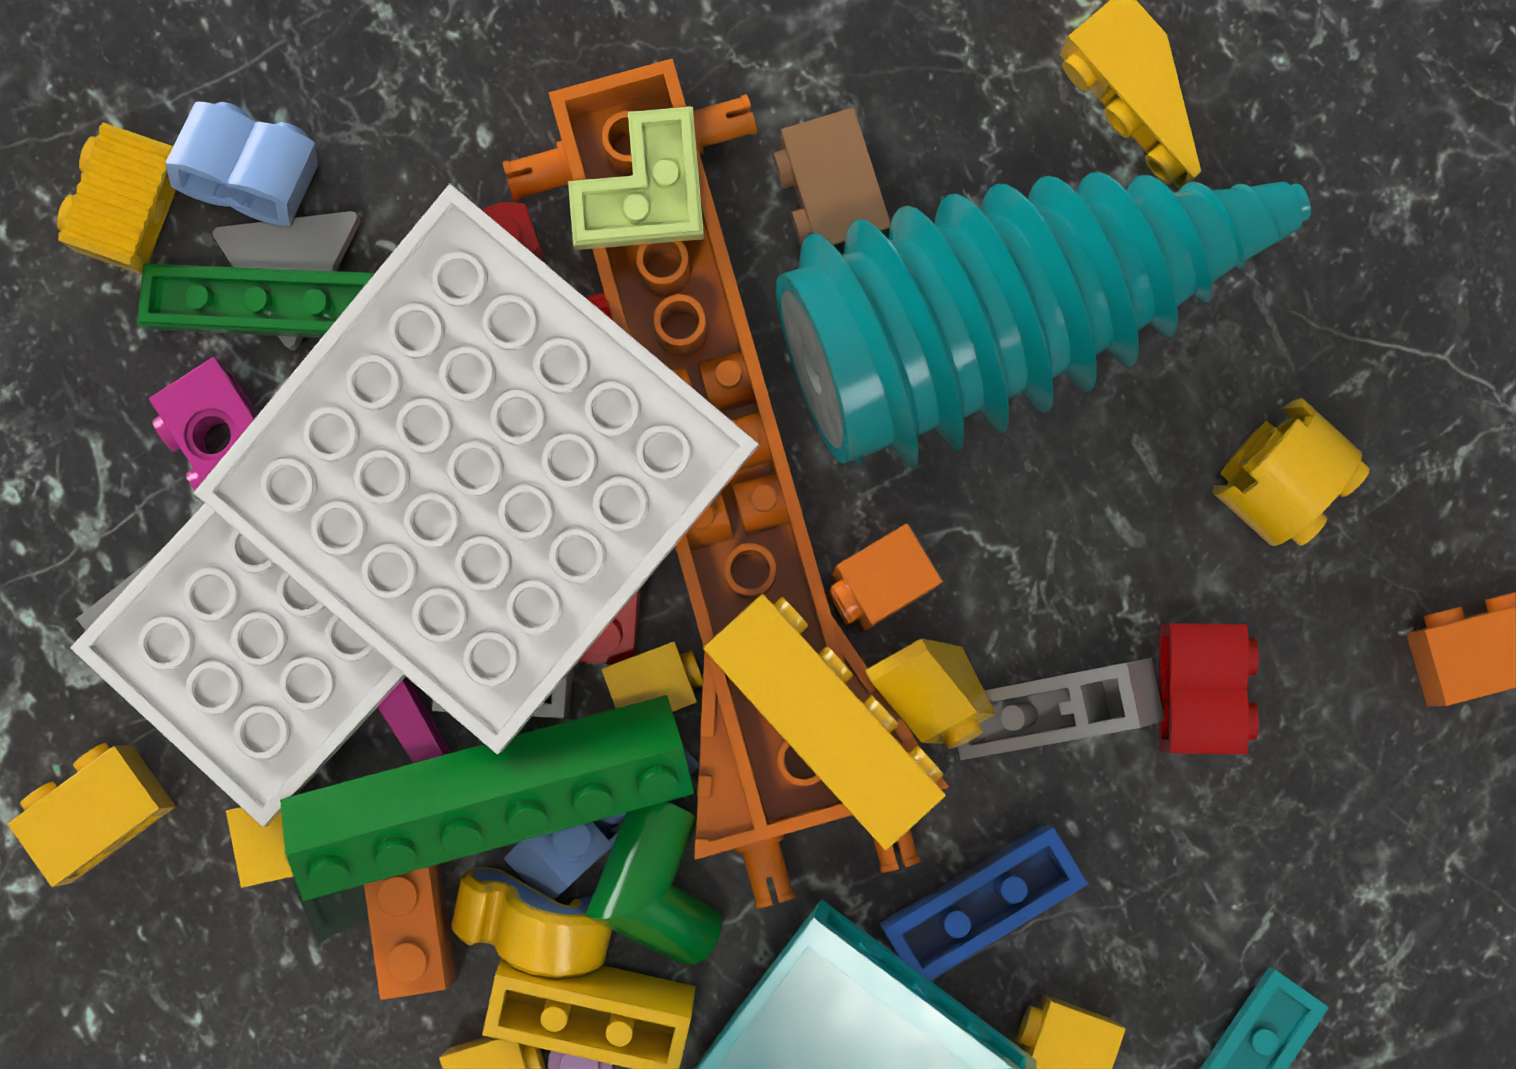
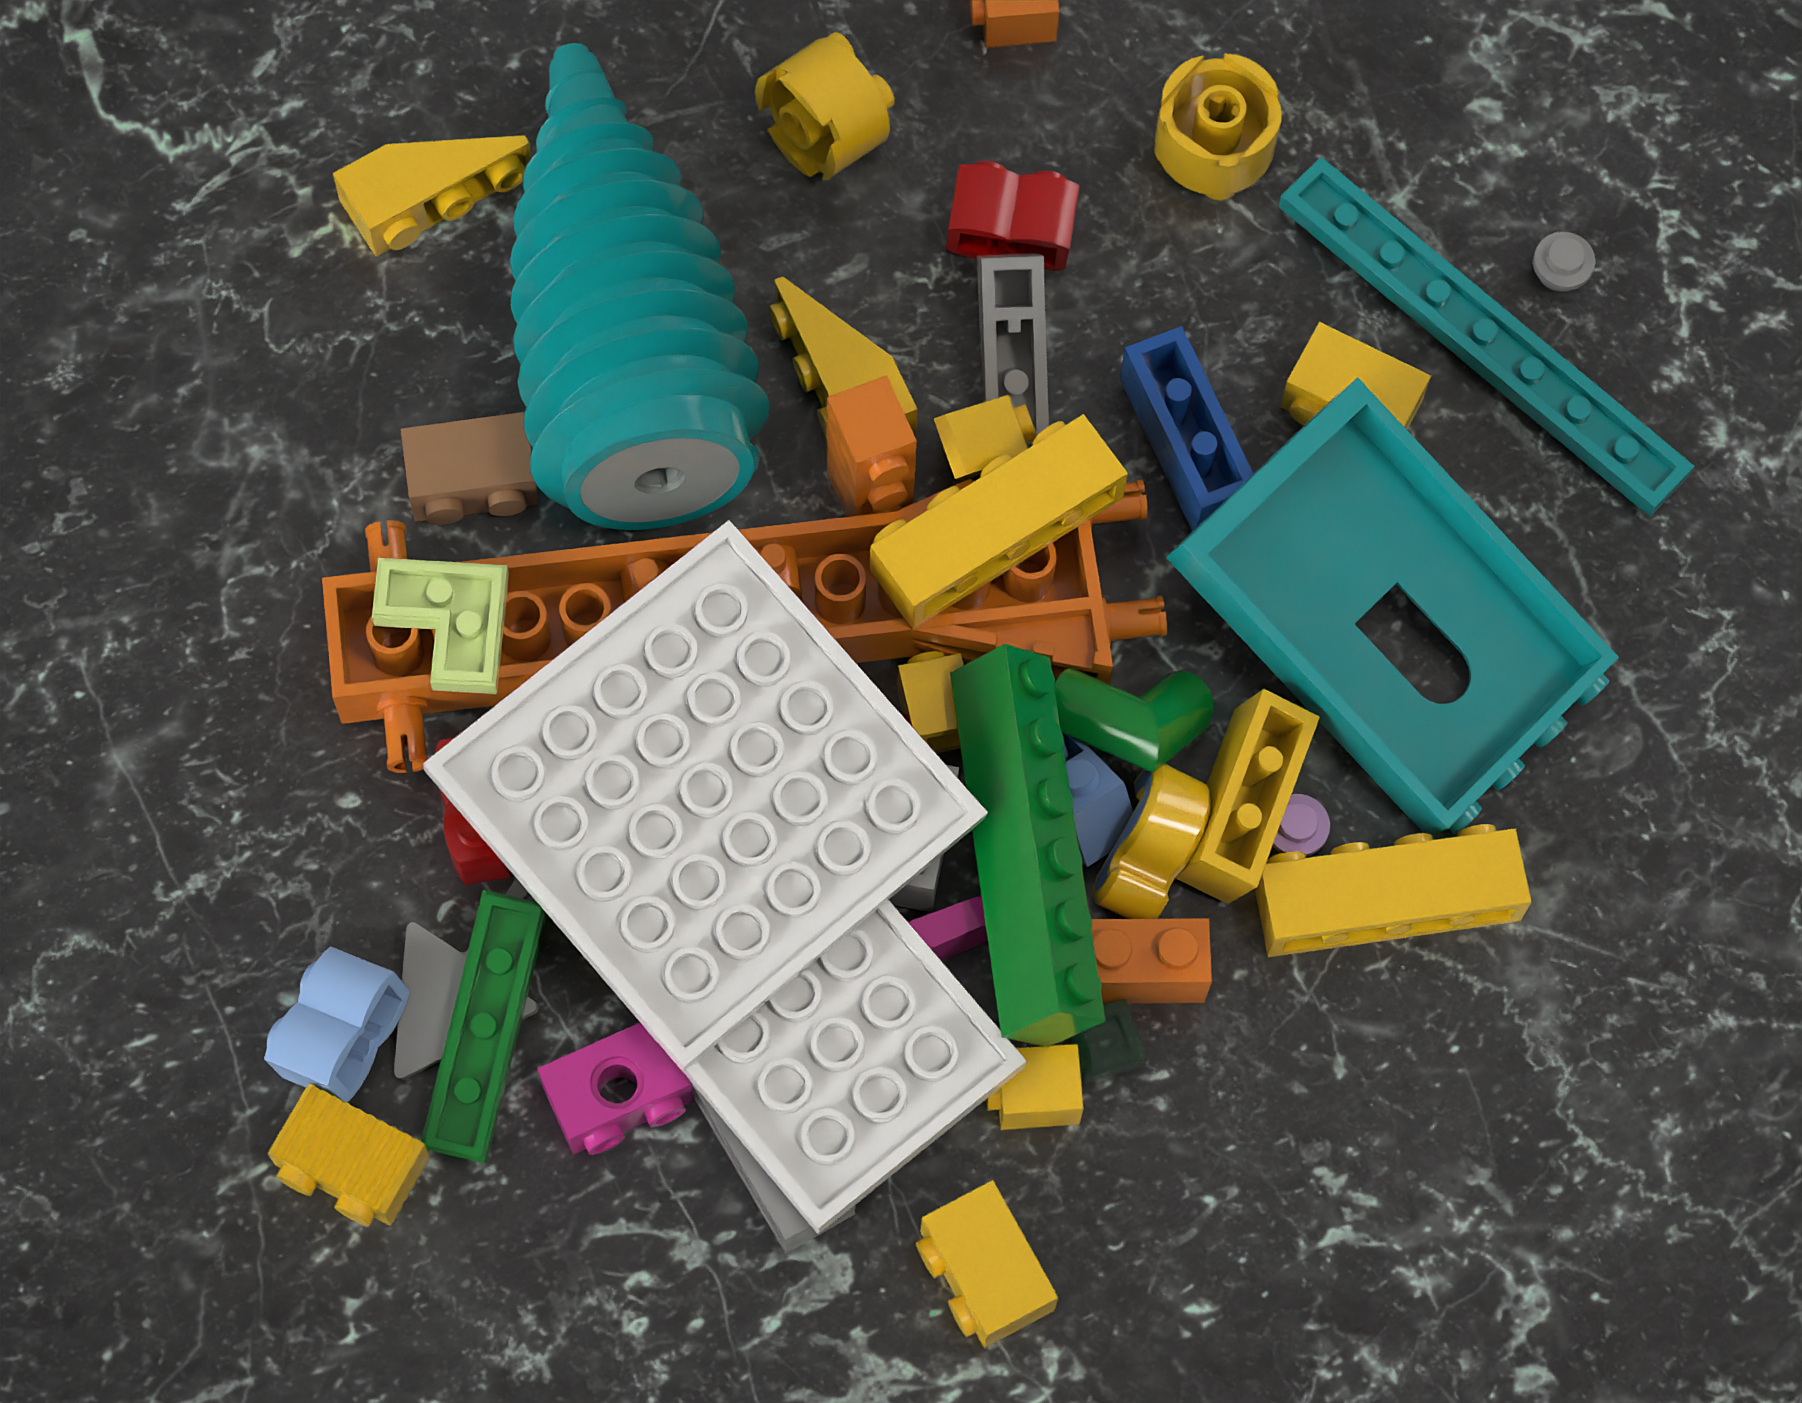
camera: 85 degrees left, 15 degrees down
(994, 547) = (831, 351): none -> yellow slope
(1374, 870) = (1218, 125): none -> yellow brick

